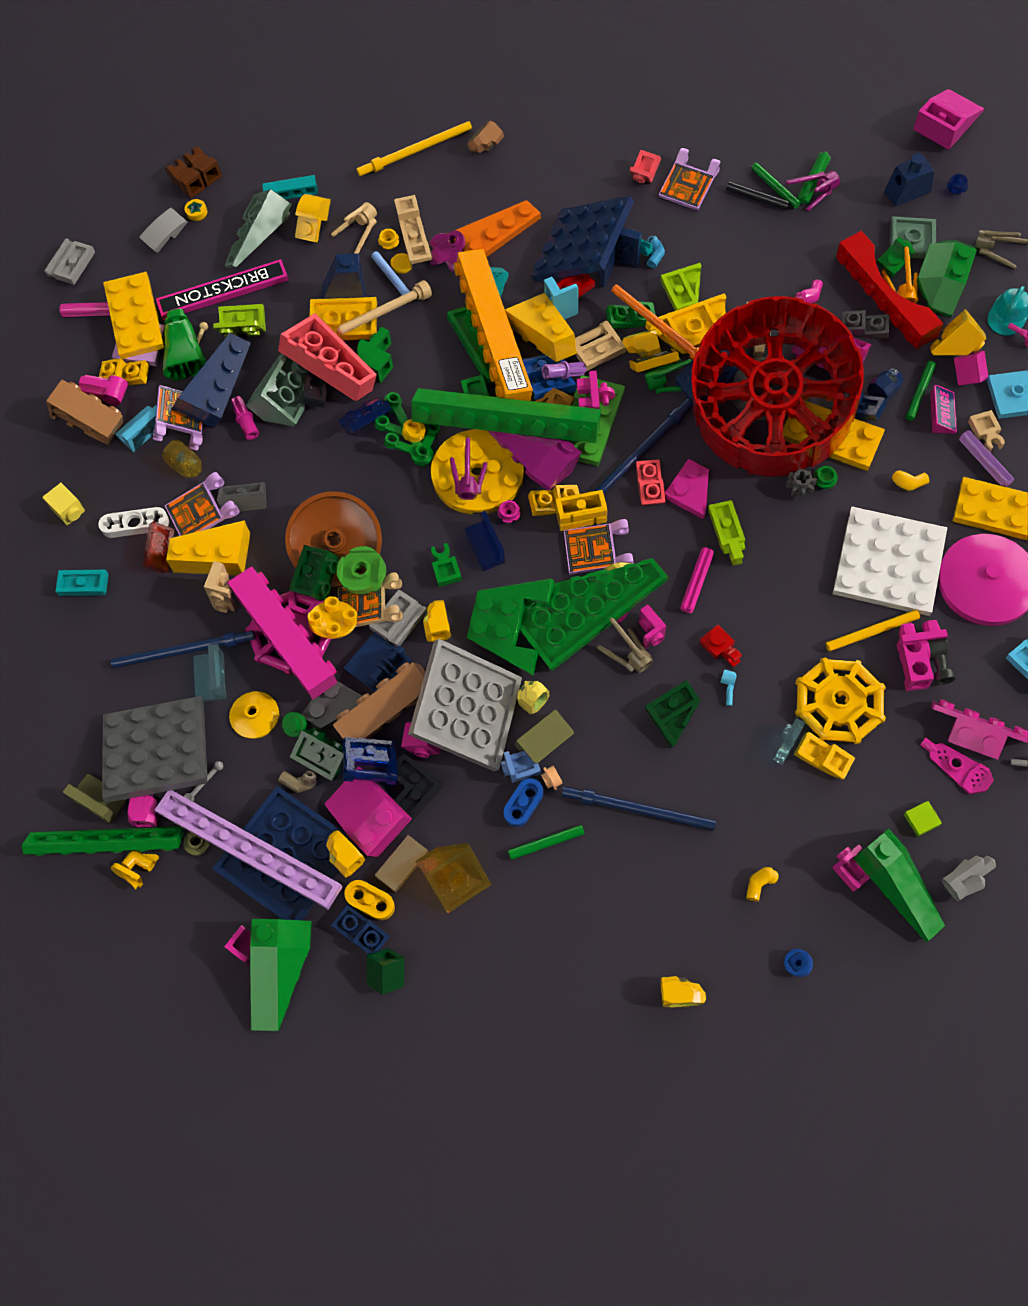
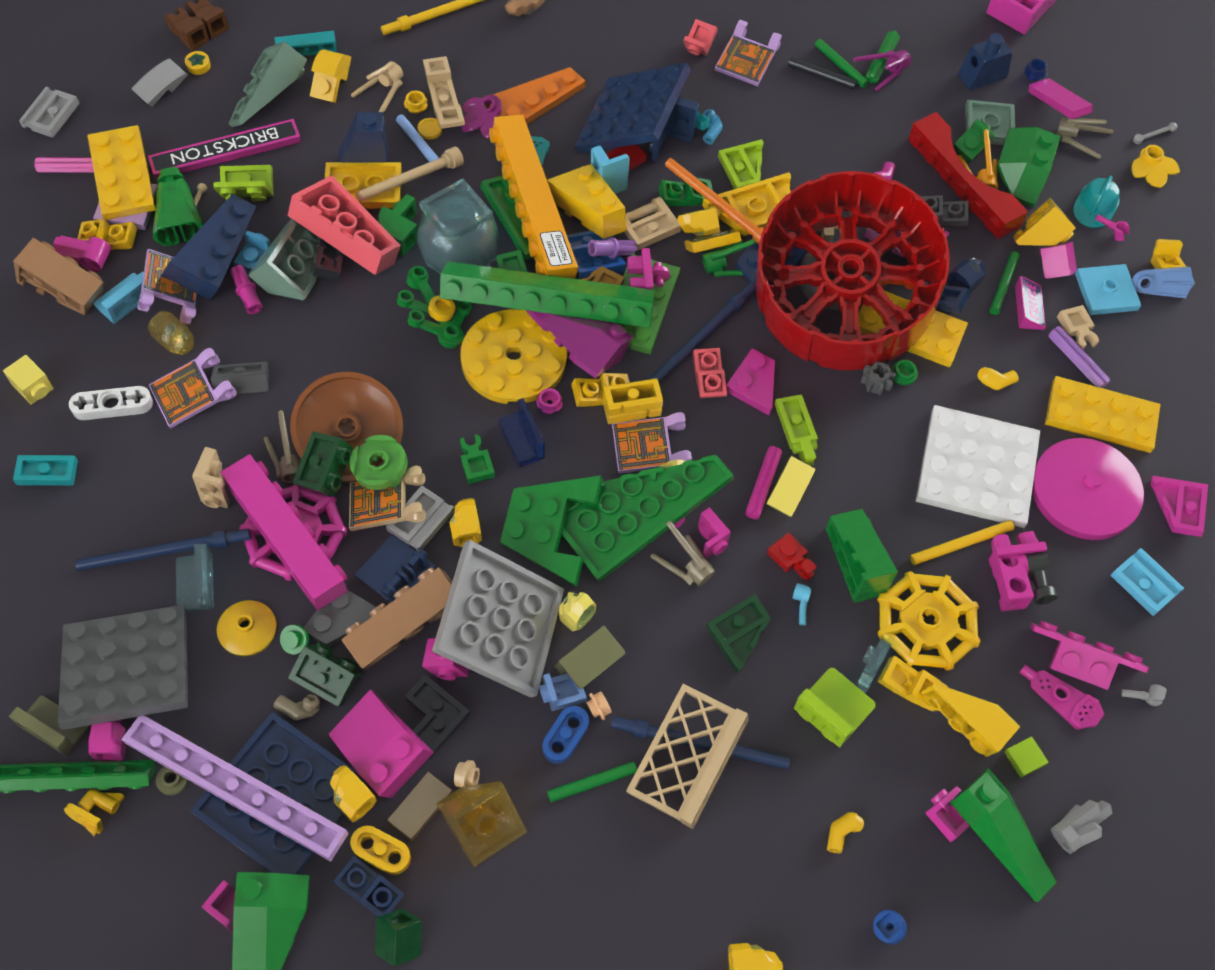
camera: 10 degrees left, 5 degrees down
(157, 547) = (139, 431): clear red plate -> none
(200, 549) = (185, 436): yellow wedge -> none
(217, 766) = (200, 688): light grey hinge -> none
(248, 383) = (254, 248): none -> dark azure bracket
(286, 571) = (289, 463): none -> dark tan plant
(332, 618) = (343, 517): yellow dish -> none
(365, 414) = (385, 289): clear blue plate -> none
(369, 753) = (384, 674): clear blue plate -> none
(426, 357) = (457, 228): none -> clear light blue plate
(440, 836) = (466, 774): none -> tan plate
(467, 487) = (503, 372): magenta plant -> none
(648, 829) = (712, 766): none -> tan fence
(720, 583) = (790, 486): none -> light yellow slope
(755, 776) = (834, 706): none -> lime bracket
(780, 643) = (860, 555): none -> green wedge
(882, 788) = (978, 720): none -> yellow slope
(979, 212) = (1060, 98): none -> dark pink tile

